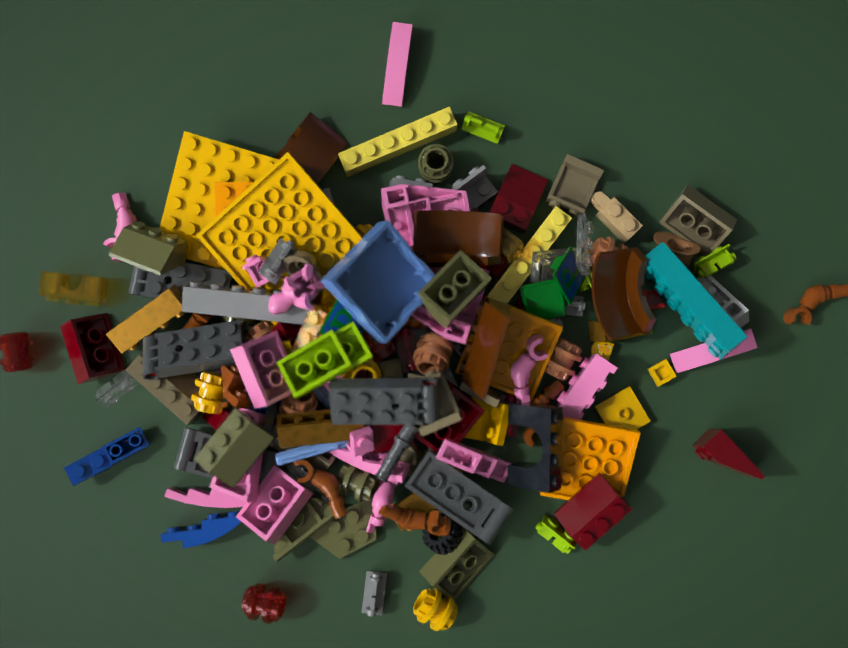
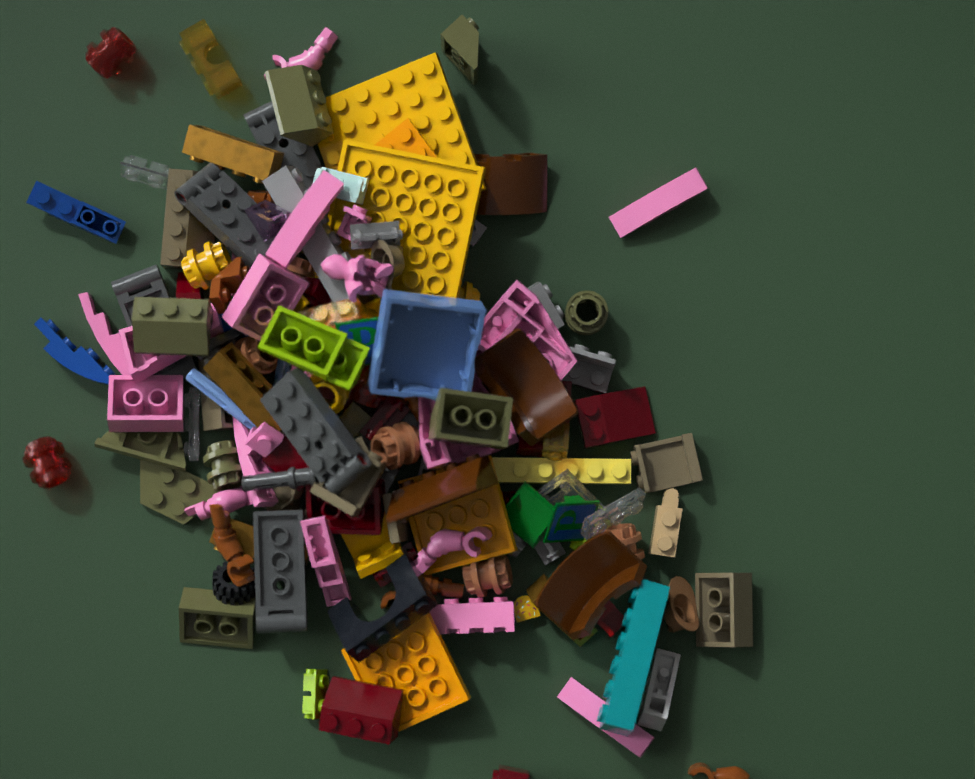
camera: 55 degrees right, 0 degrees up
(90, 349) = (165, 119): dark red slope -> none
(195, 111) = (461, 46): none -> olive slope
(211, 326) = (267, 218): none -> clear purple slope
(225, 261) = (354, 185): none -> light aqua hinge
(230, 301) = (304, 219): none -> bright pink slope
(328, 484) = (202, 437): dark orange piece -> none
(374, 593) = (131, 560): light grey hinge -> none
(398, 141) = (581, 260): light yellow brick -> none
(435, 609) = (159, 629): yellow piece -> none
(482, 127) = (659, 331): lime hinge -> none
(623, 410) = (481, 672): yellow plate -> none
(661, 372) = (547, 682): yellow plate -> none
(706, 265) = (684, 648): lime hinge -> none

